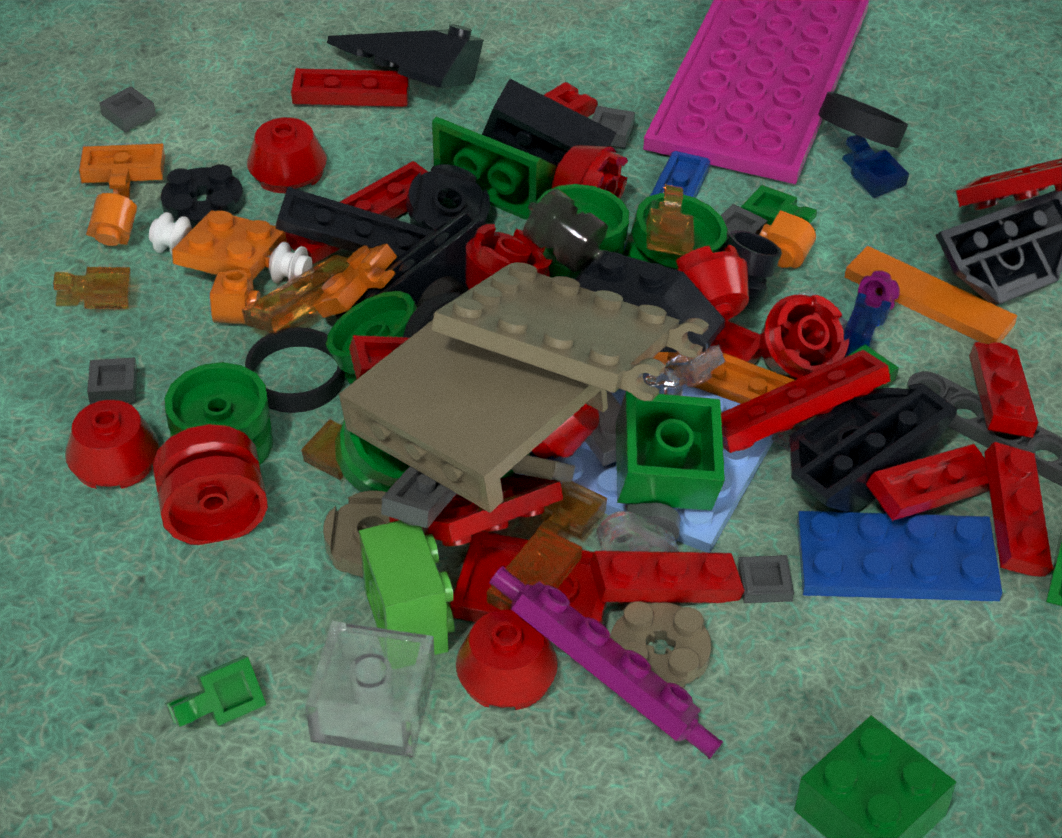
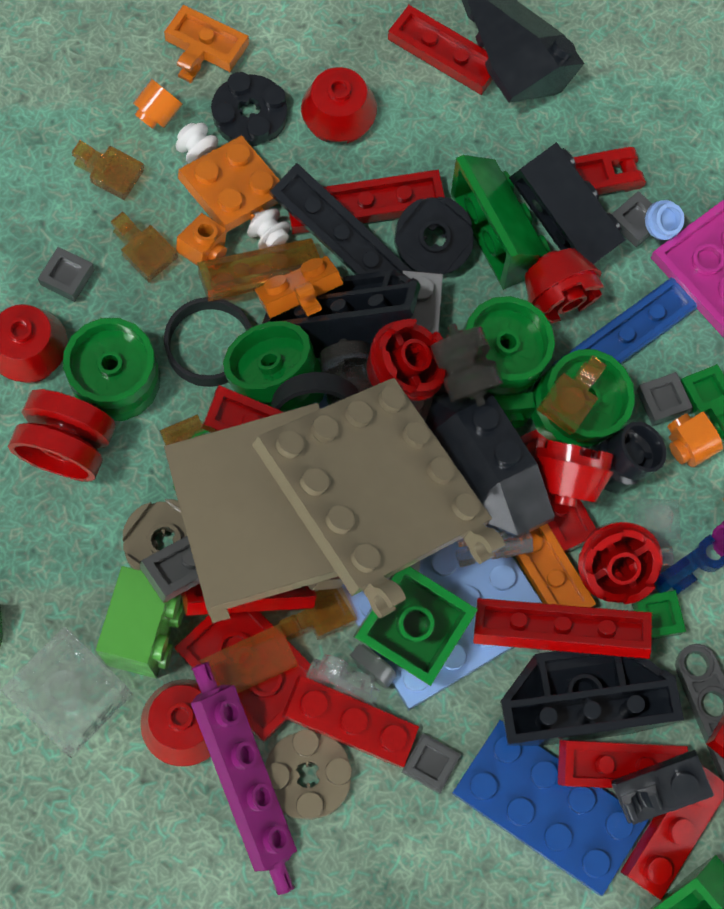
camera: 30 degrees right, 25 degrees up
(178, 330) = (143, 250): none -> clear orange plate
(637, 108) = (664, 219): none -> light blue plate
(983, 468) = (662, 787): none -> black plate

